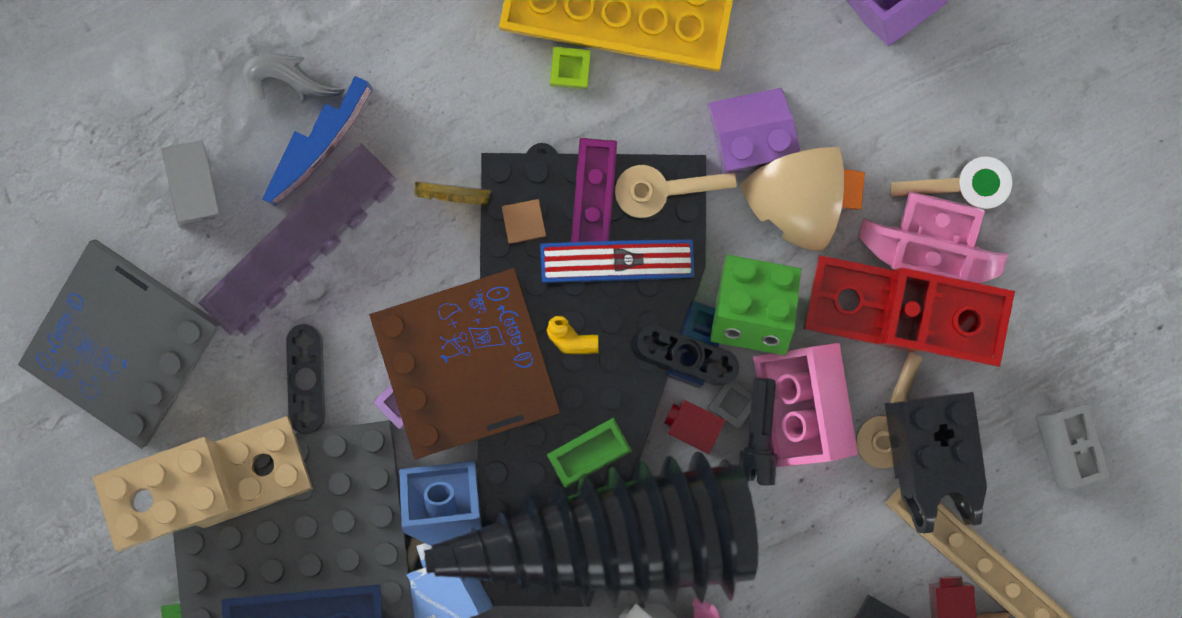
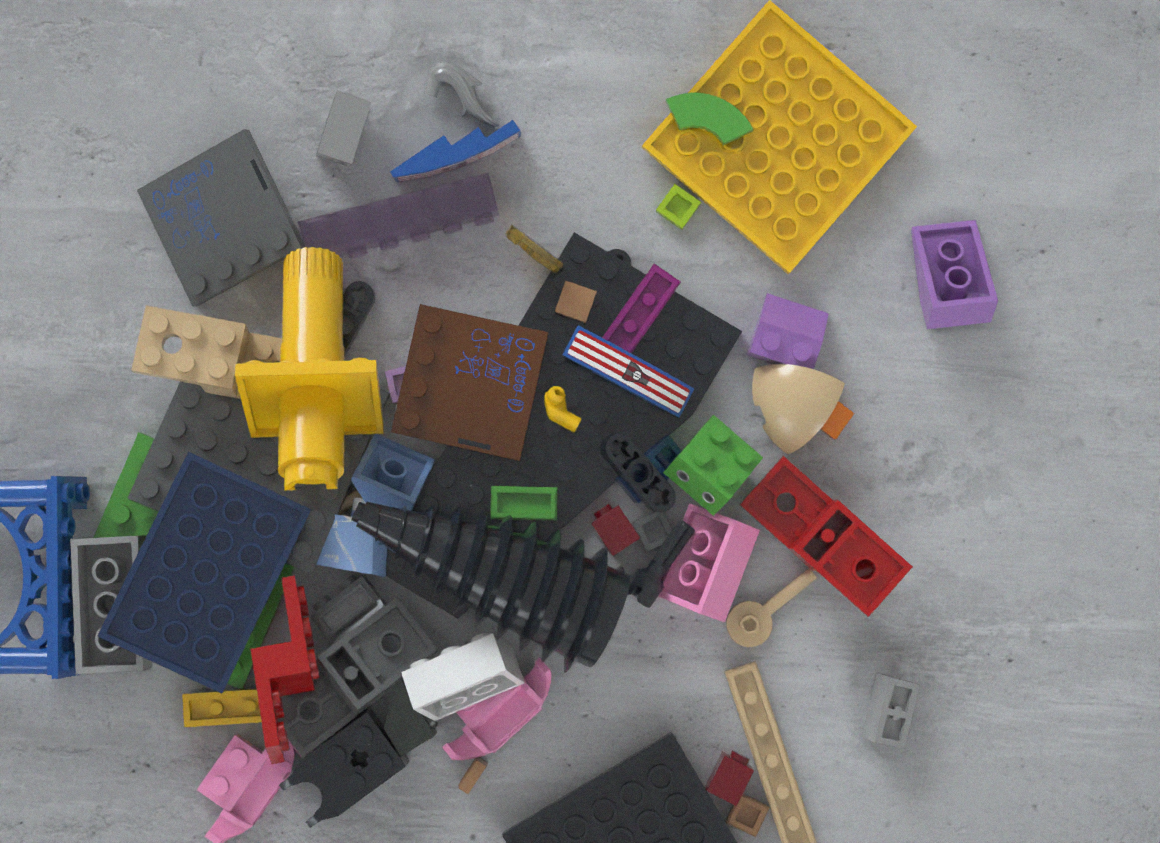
camera: 30 degrees right, 0 degrees up
(311, 465) = (312, 391): none -> yellow piece
(644, 191) = (679, 331): tan piece -> none
(935, 239) = (878, 495): bright pink plate -> none
(939, 466) = (784, 667): black brick -> none
(981, 183) = (937, 473): piece -> none

